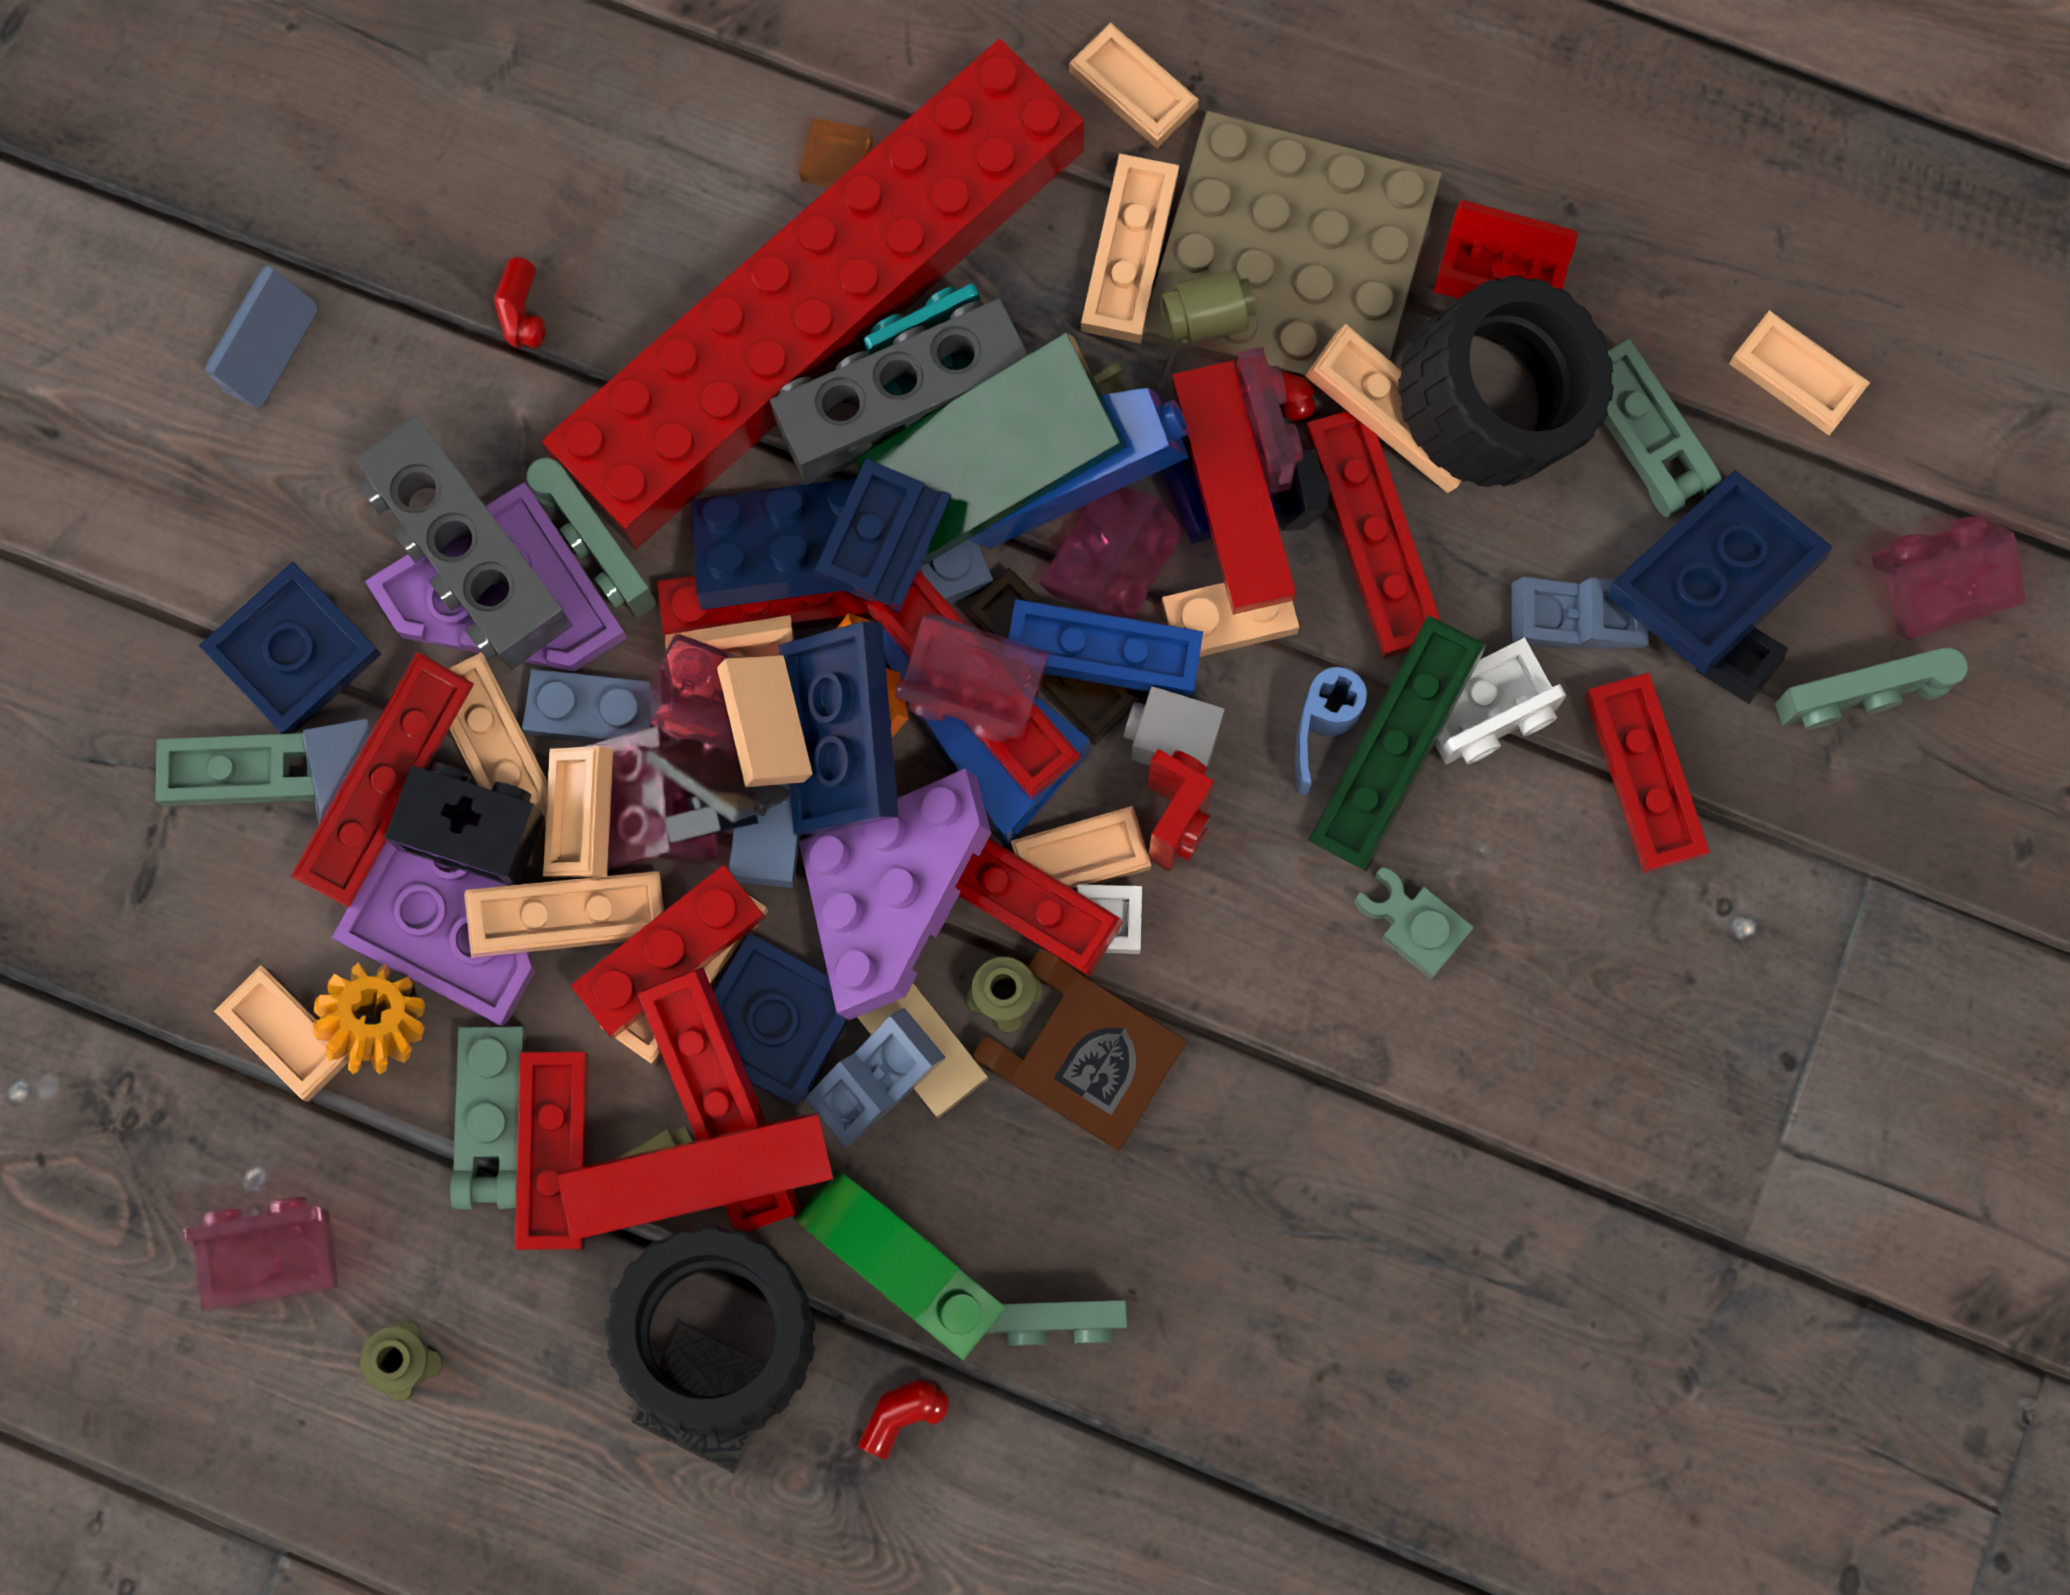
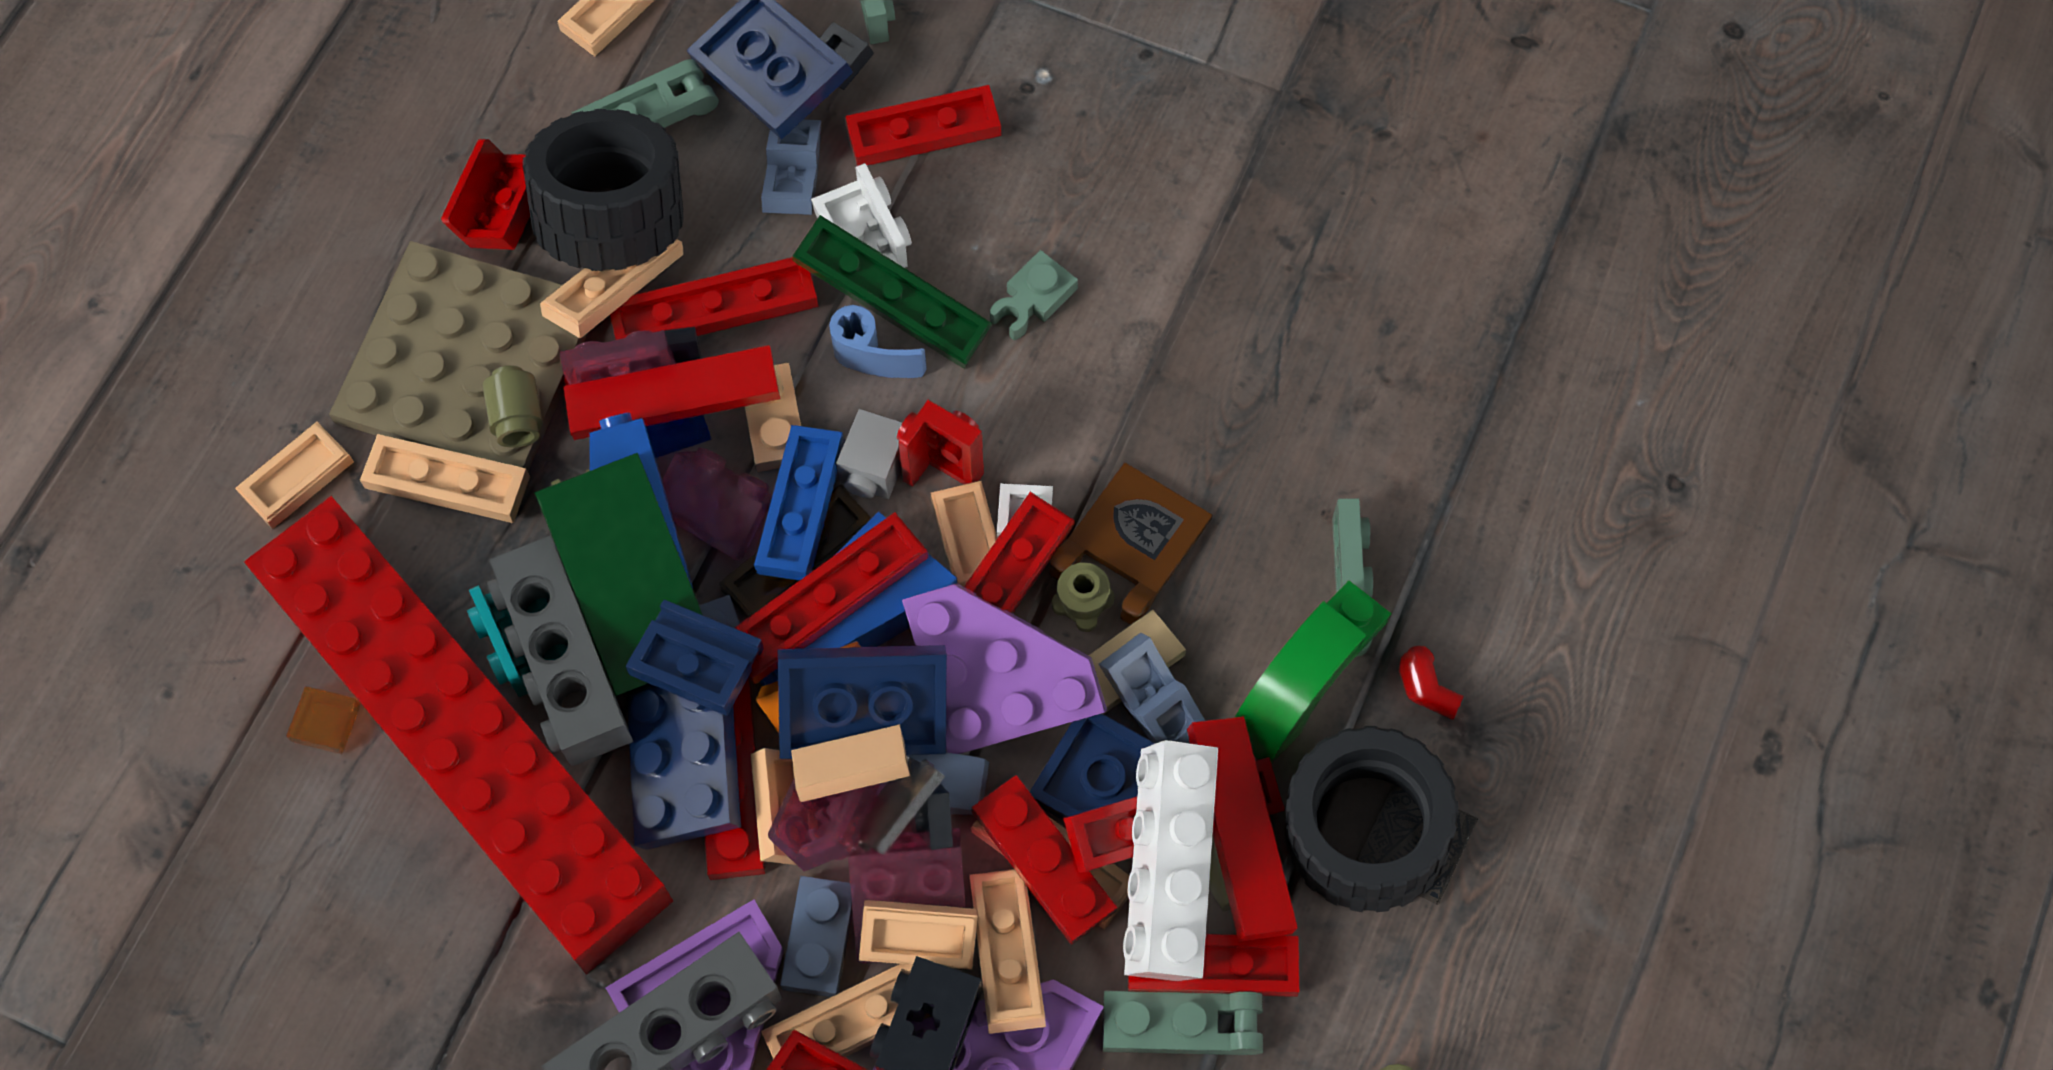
camera: 90 degrees left, 10 degrees down
(511, 308) = (431, 1005): red arm -> none
(589, 536) = (663, 928): sand green plate -> none
(643, 1087) = (1171, 861): none -> white brick
(972, 678) = (828, 582): clear pink bracket -> none

